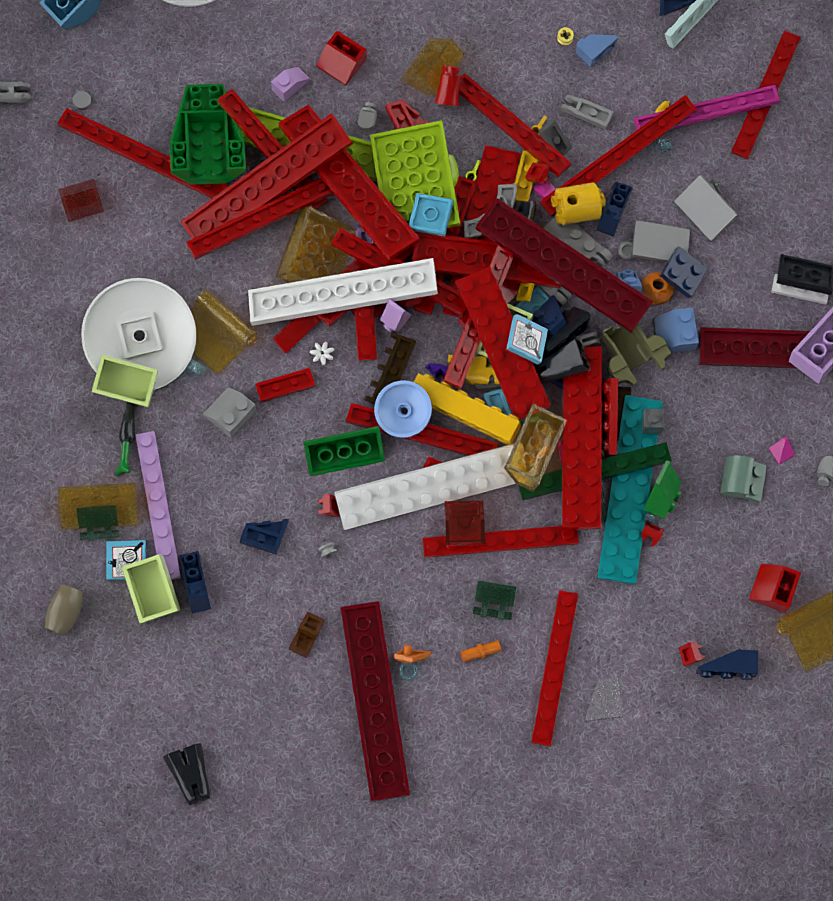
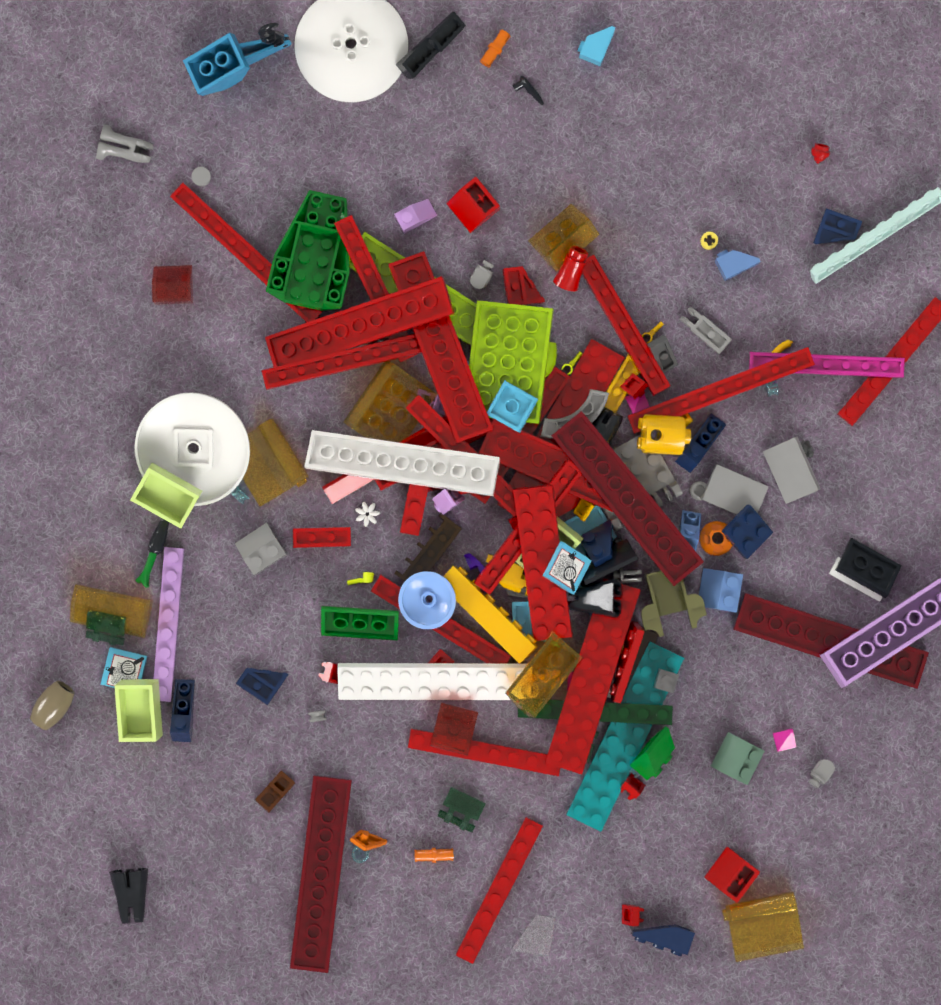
camera: 25 degrees right, 15 degrees up
(339, 409) = (368, 577): none -> neon yellow hand

